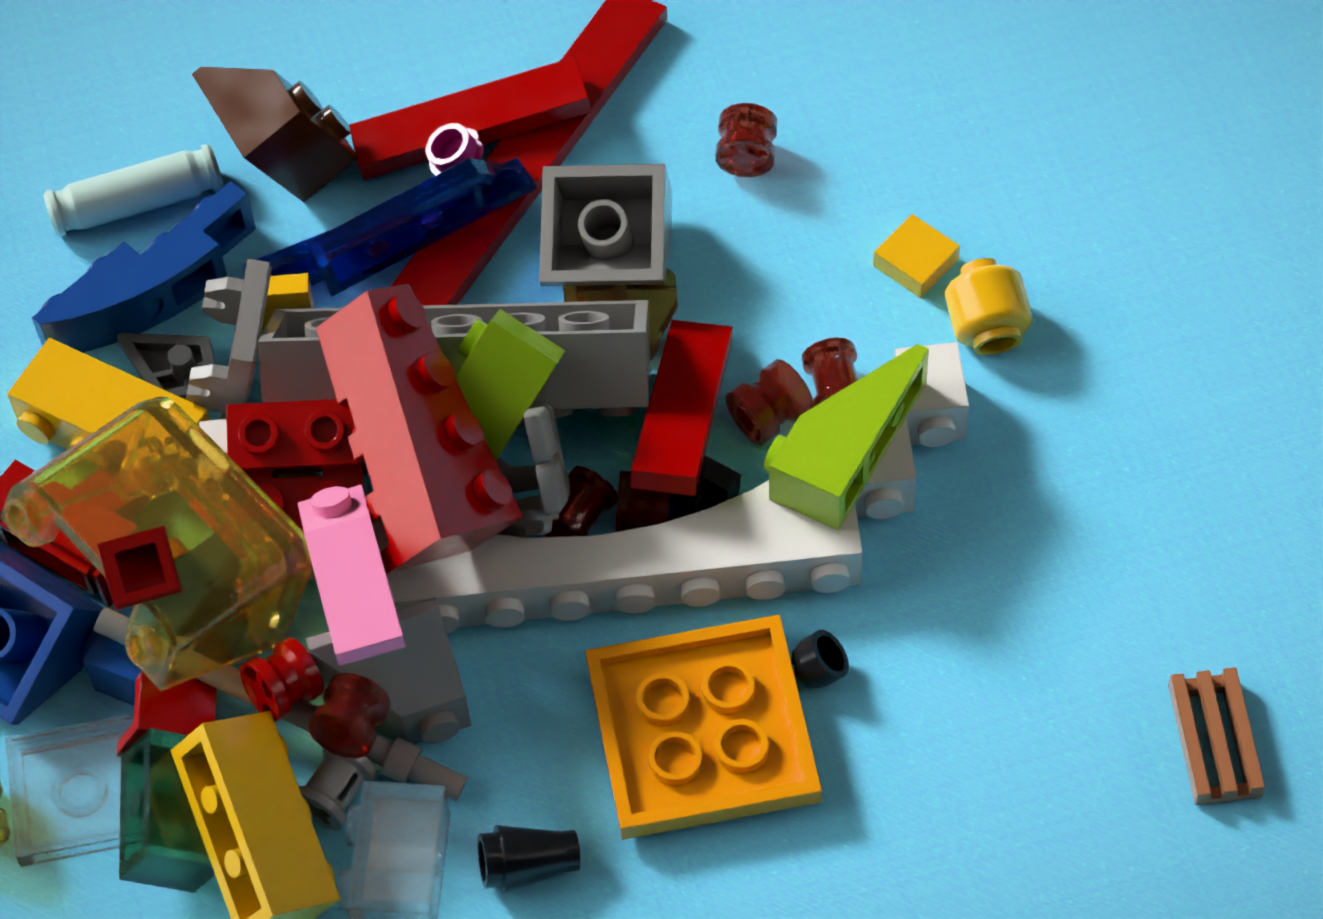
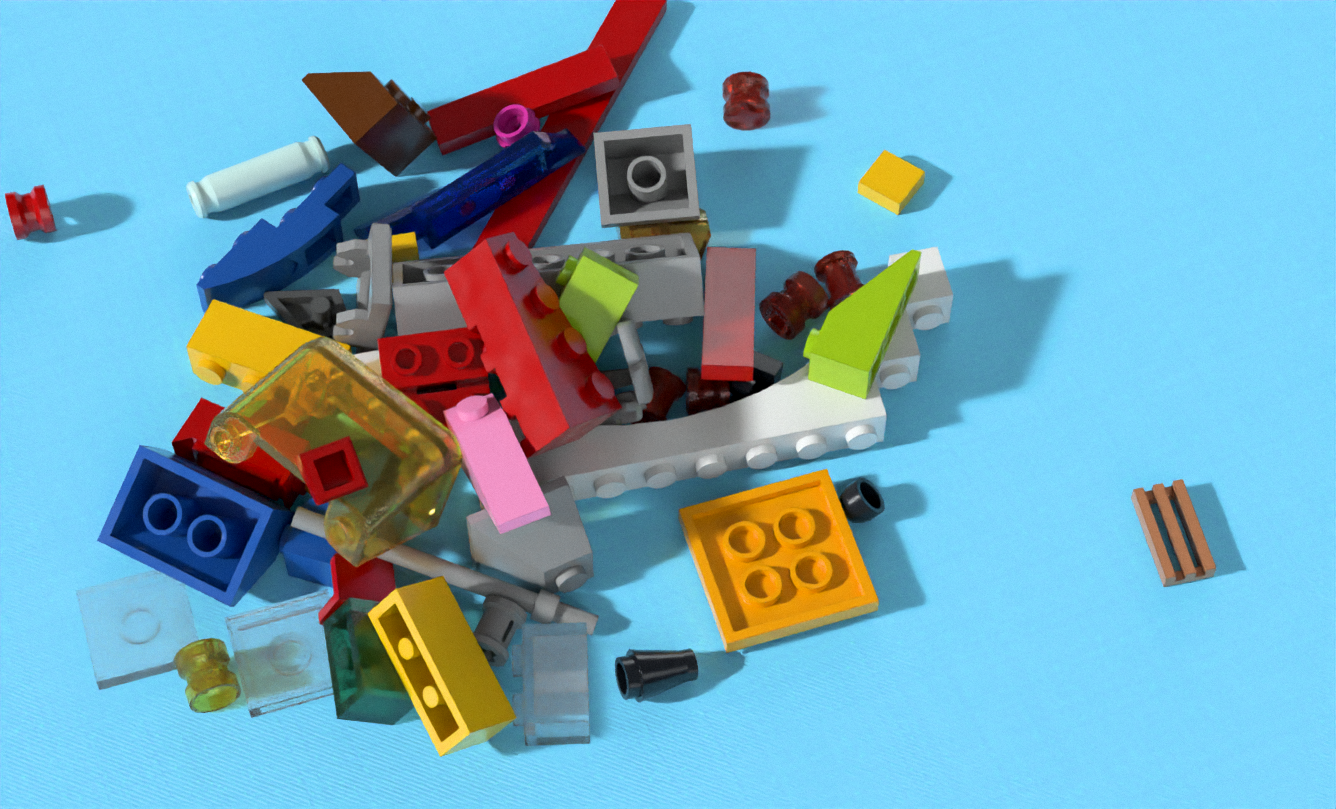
camera: 10 degrees left, 0 degrees up
(281, 679) = (448, 550): red wheel -> none
(349, 715) = (505, 574): clear red wheel -> none
(988, 307) = (955, 217): yellow head -> none

